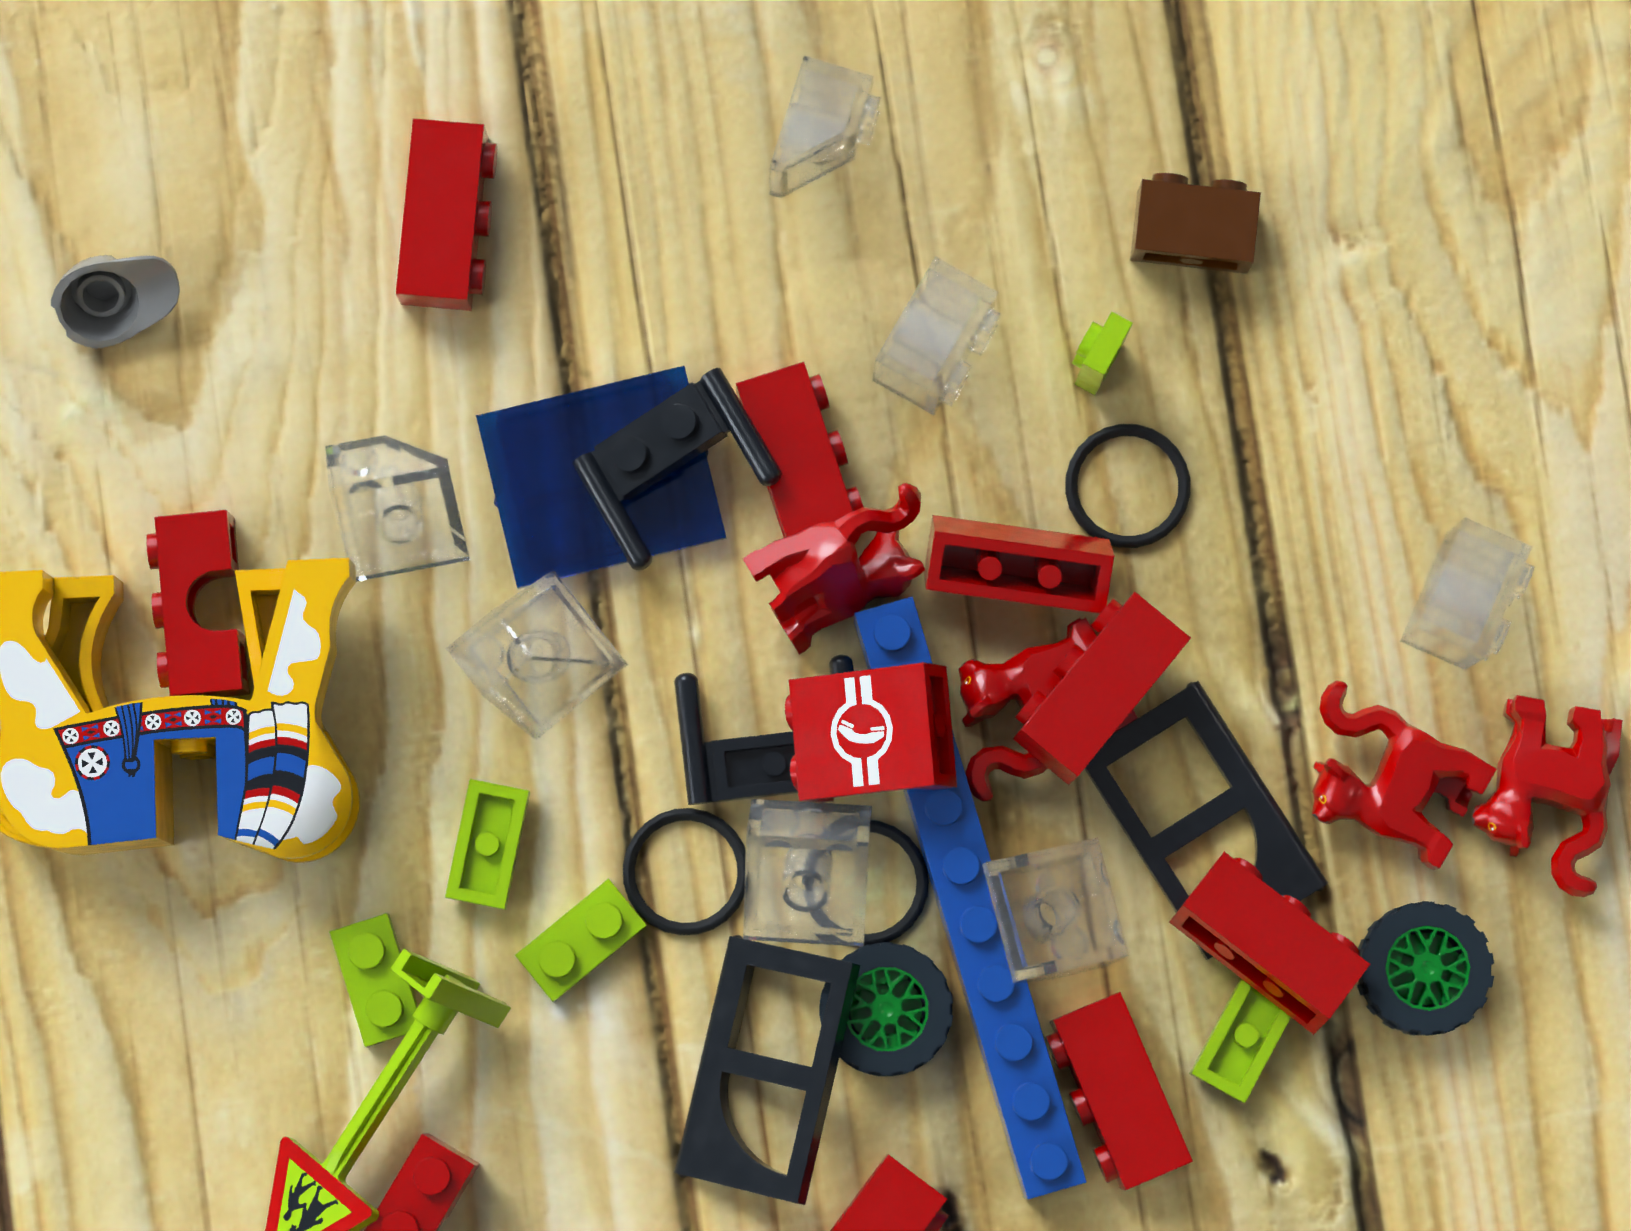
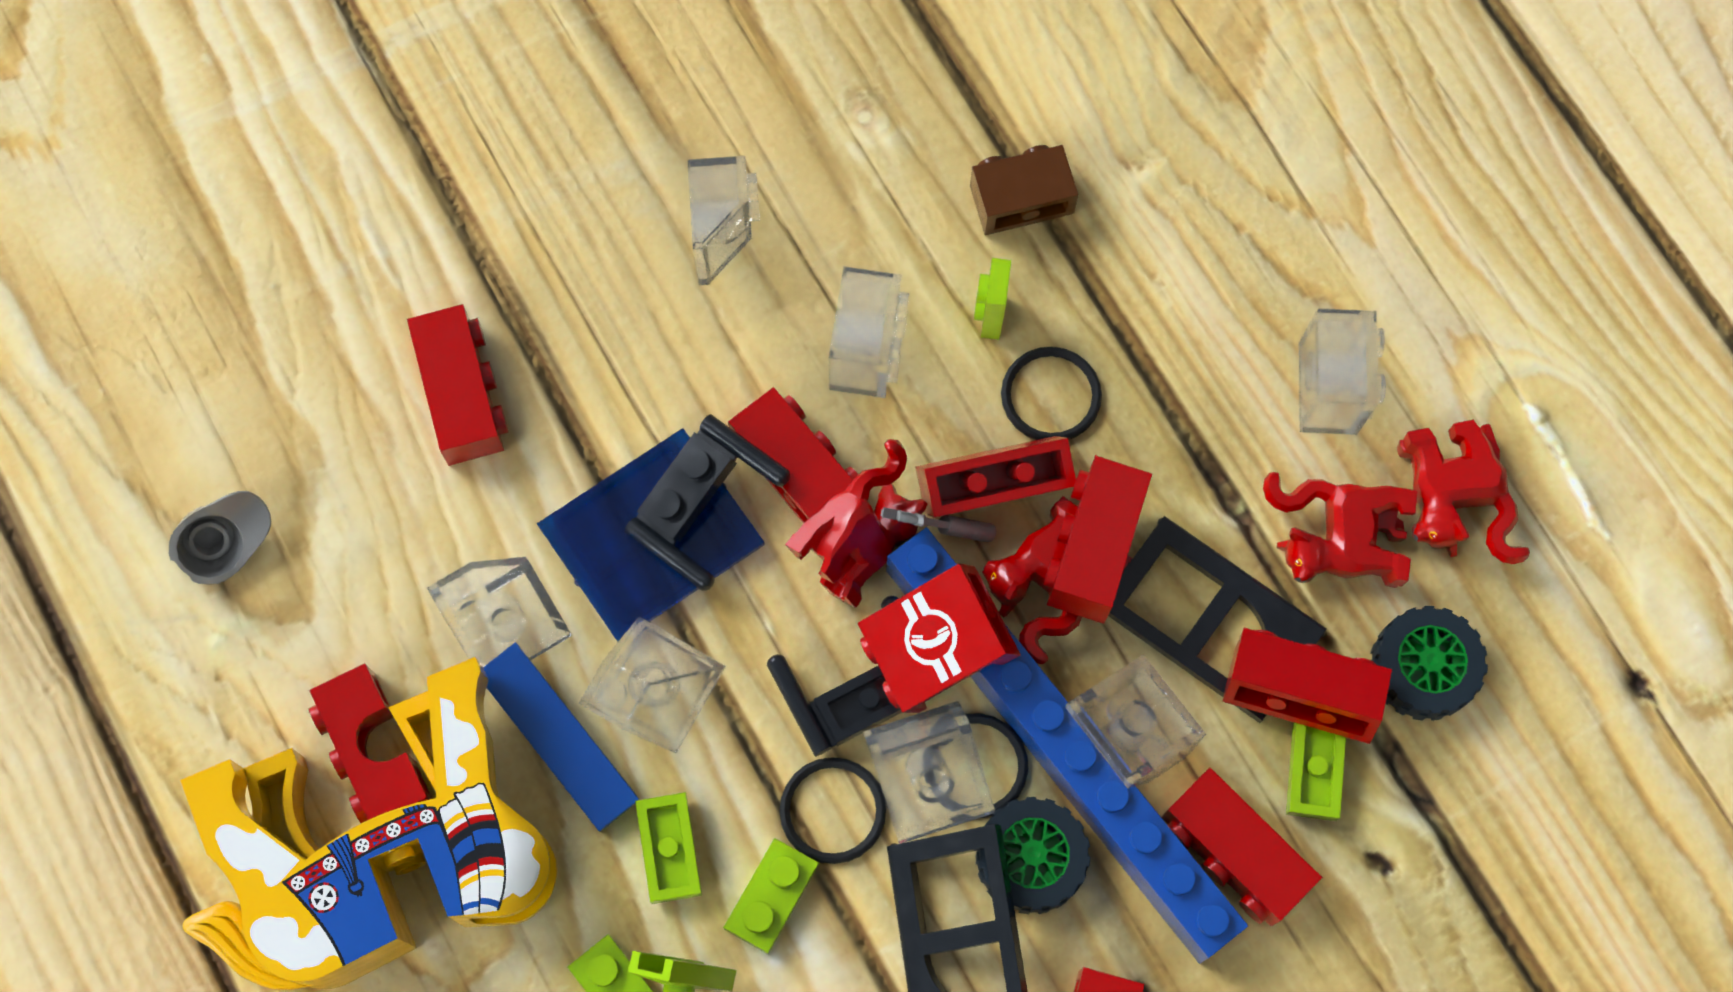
camera: 20 degrees left, 10 degrees down
(411, 673) = (558, 737): none -> blue tile
(939, 602) = (946, 524): none -> light grey piece

